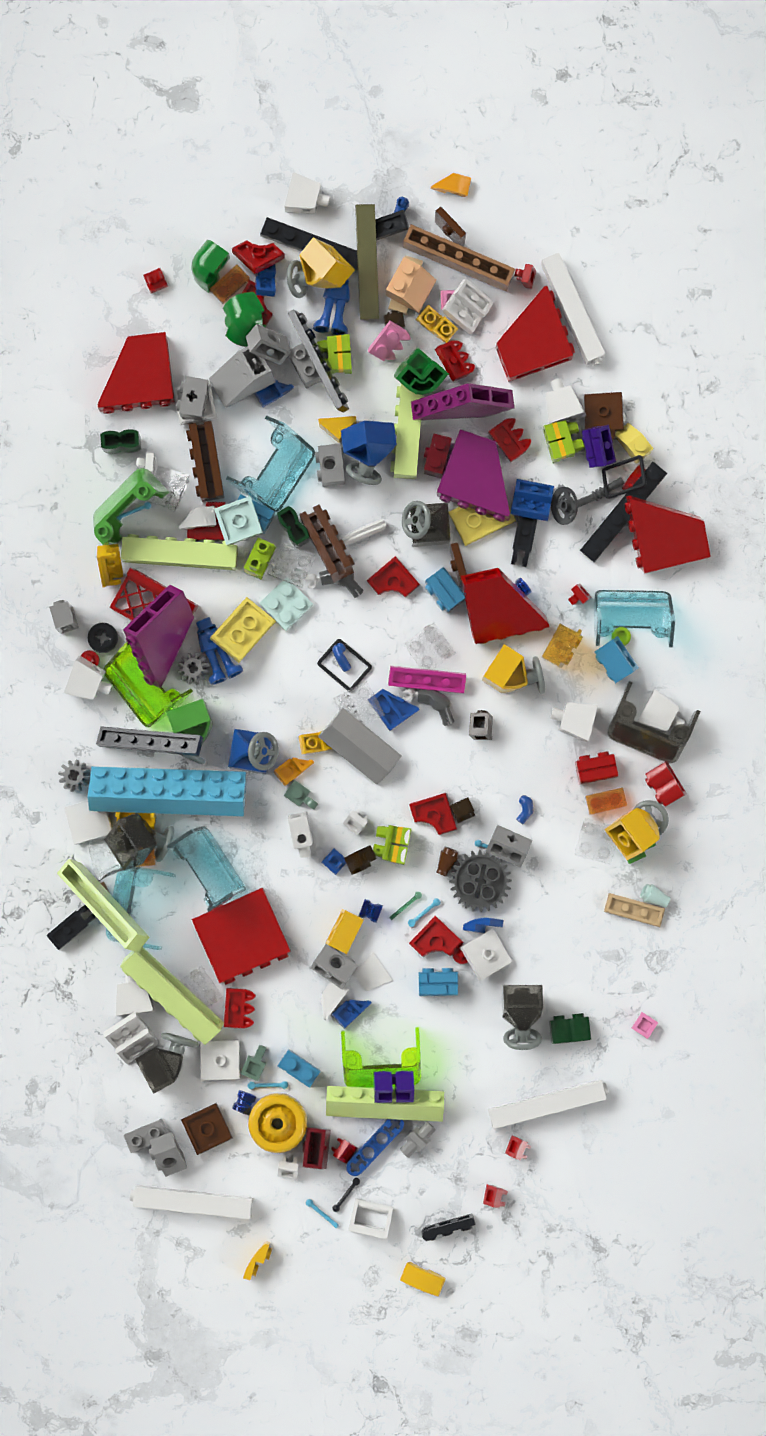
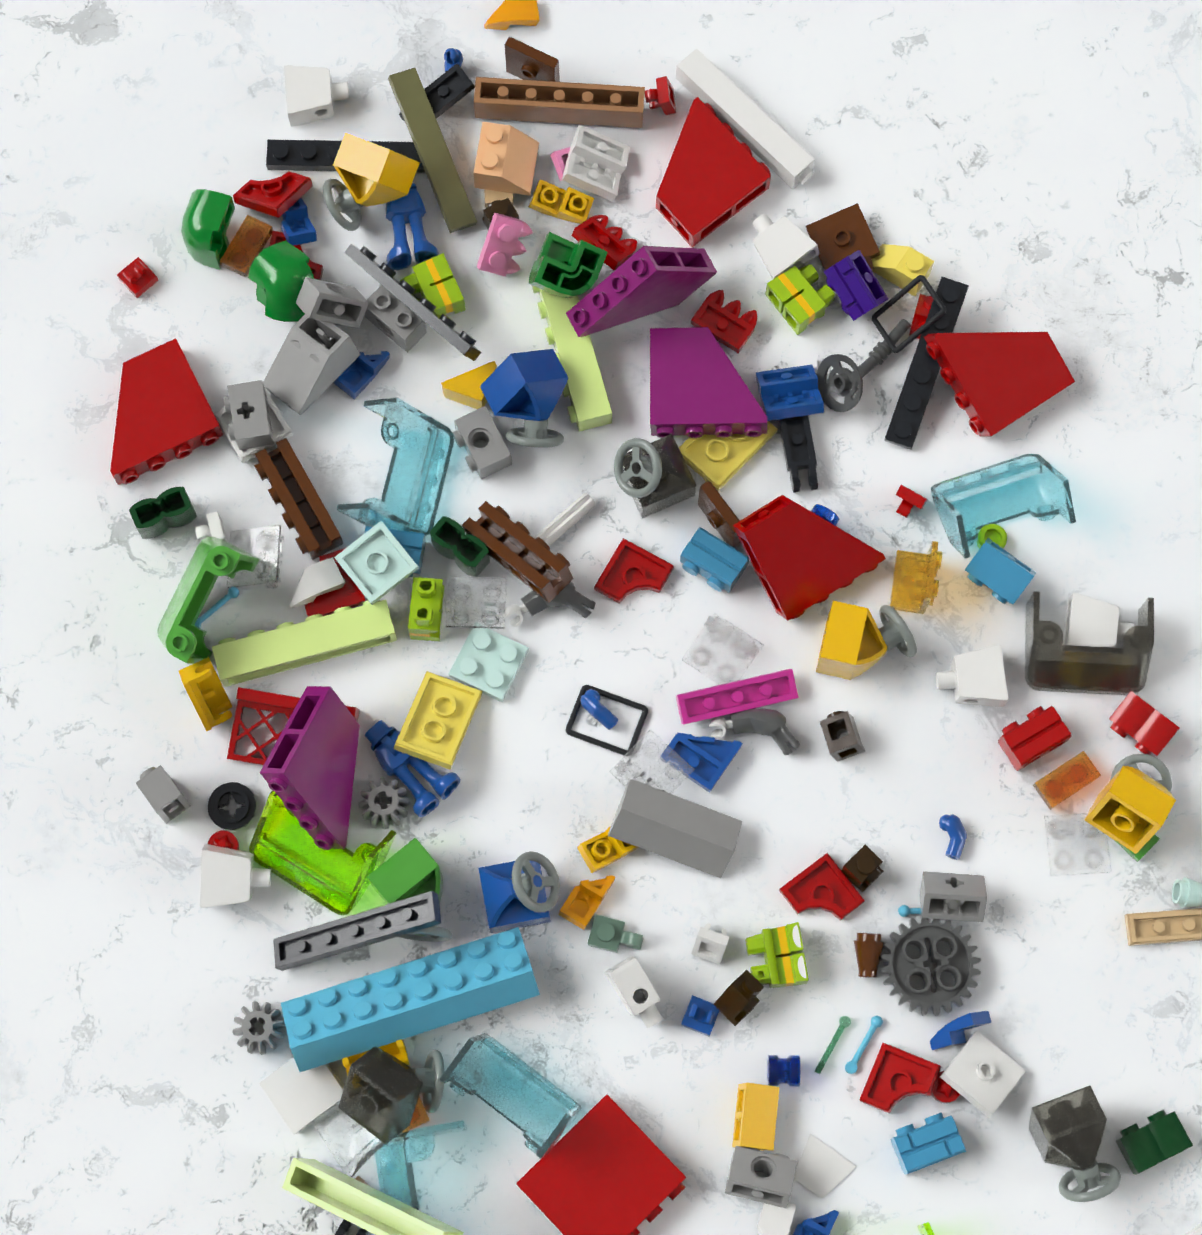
camera: 20 degrees left, 10 degrees down
(437, 455) = (630, 377): dark red brick -> none

